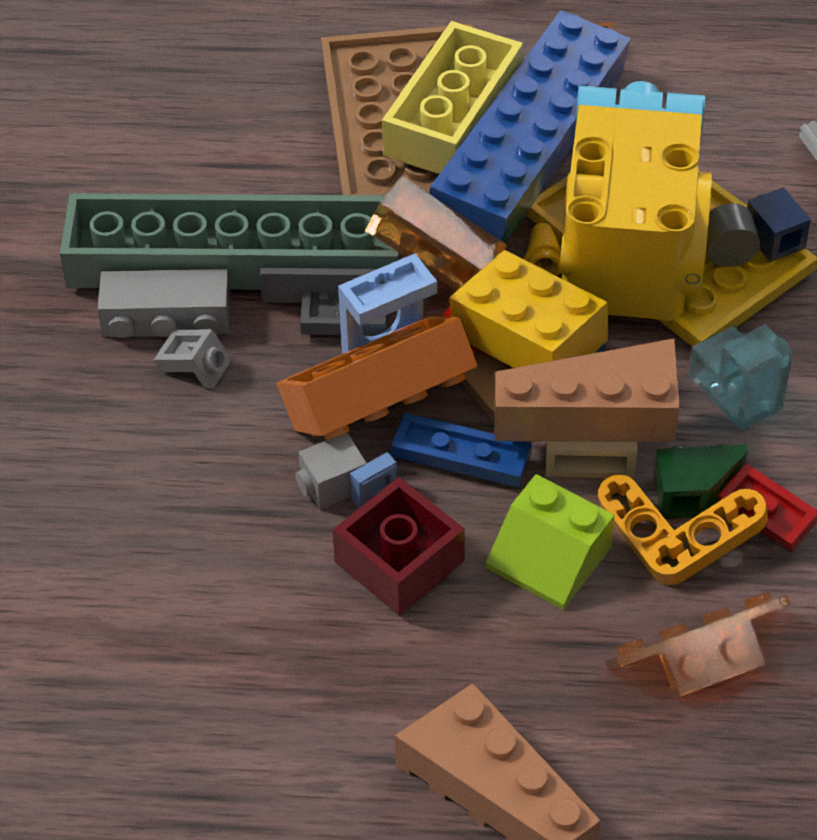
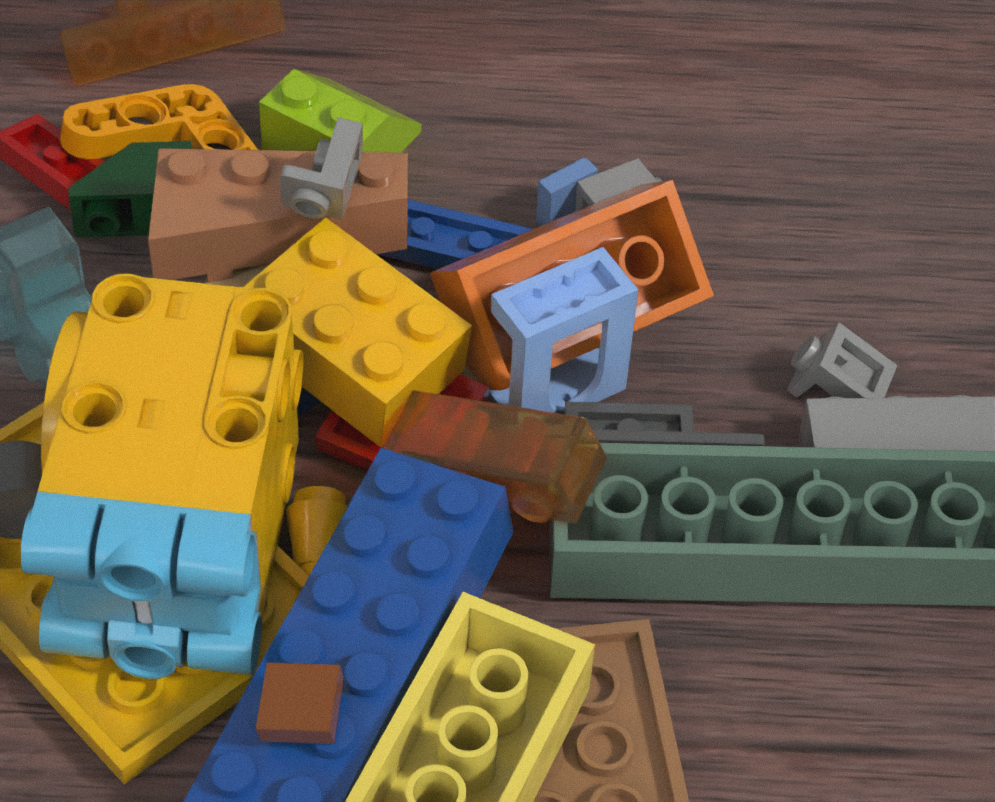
camera: 175 degrees right, 0 degrees up
(399, 545) = (529, 101): dark red brick -> none
(544, 88) = (300, 703): none -> dark orange tile
(554, 342) = (330, 182): none -> light grey bracket

